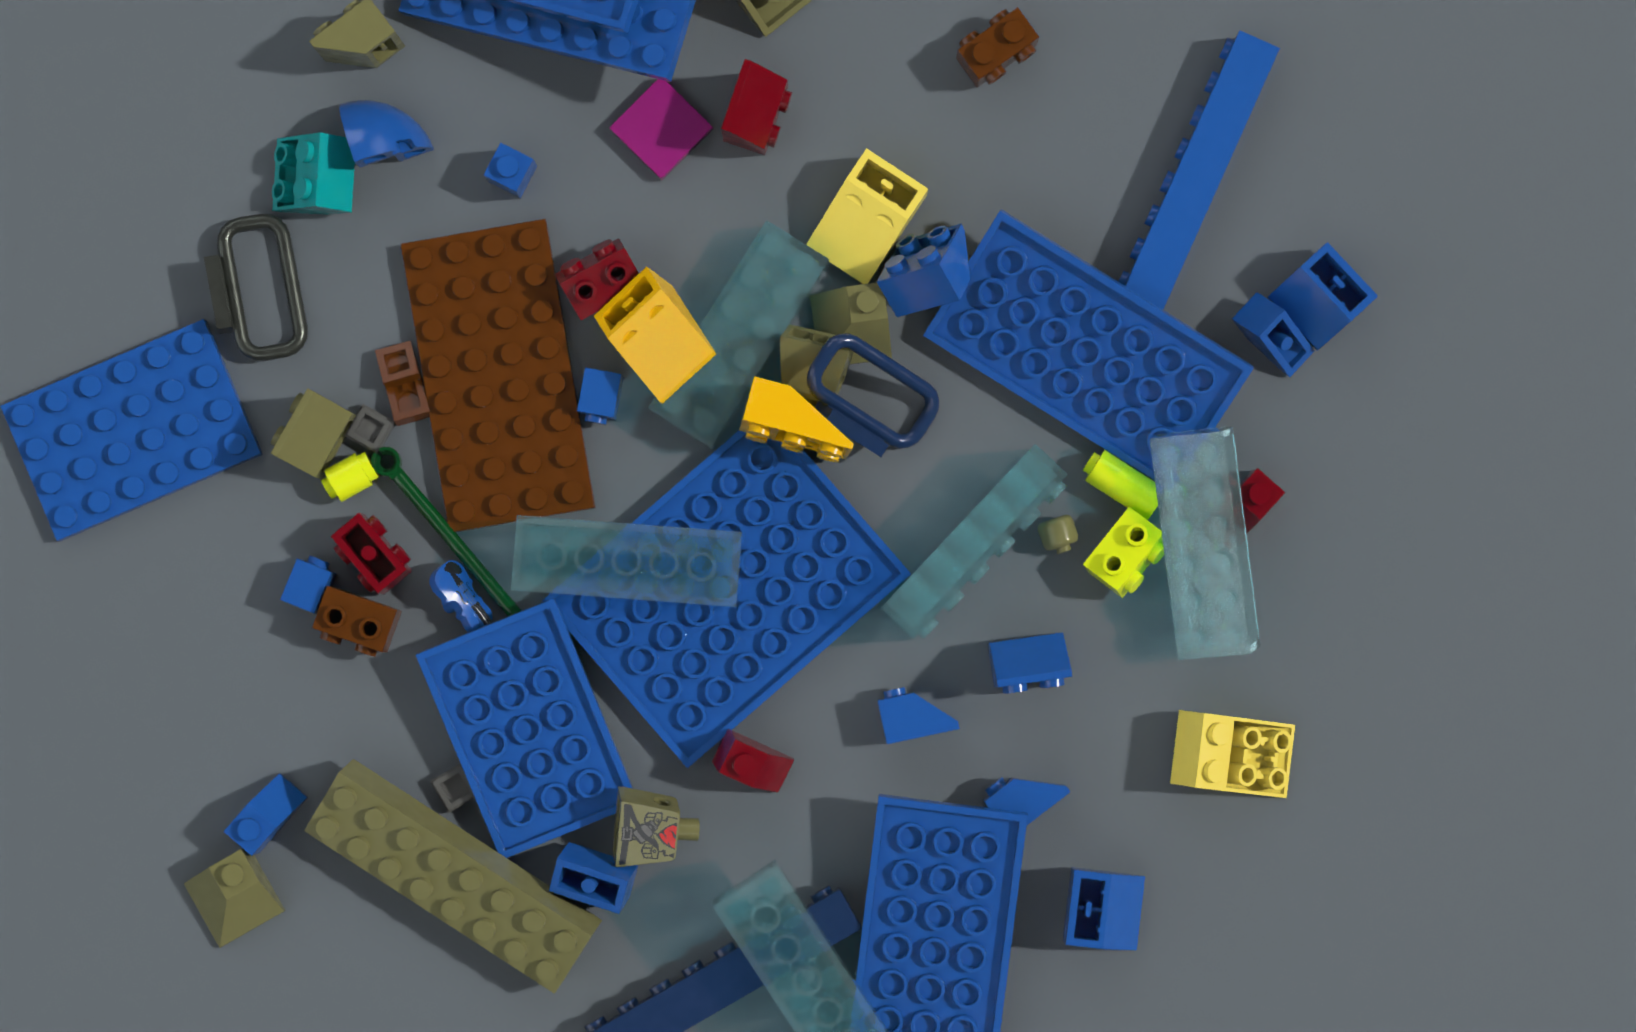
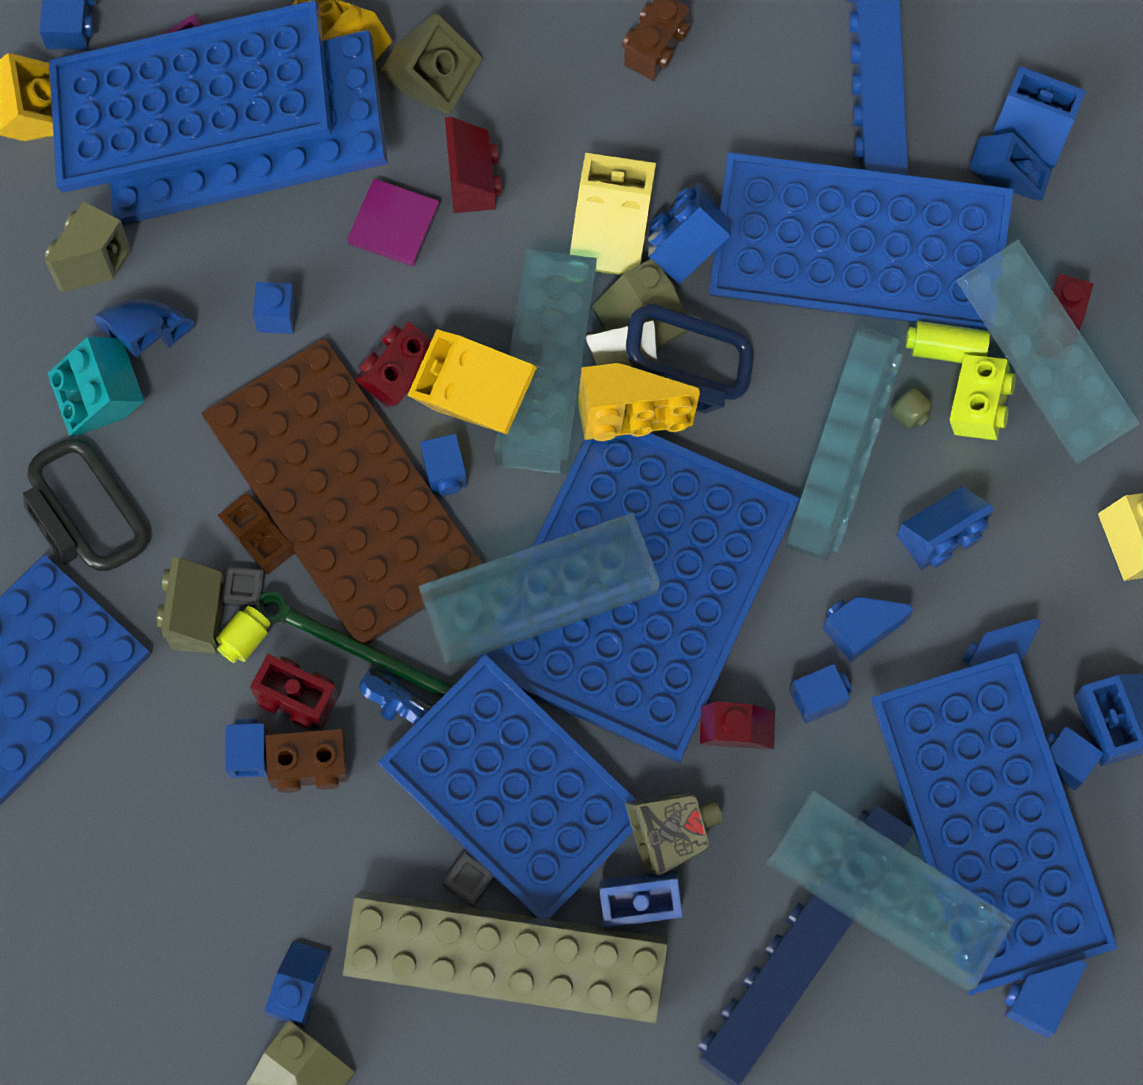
camera: 30 degrees left, 15 degrees down
(843, 763) = (821, 693): none -> blue brick
(1036, 921) = (1073, 756): none -> blue brick

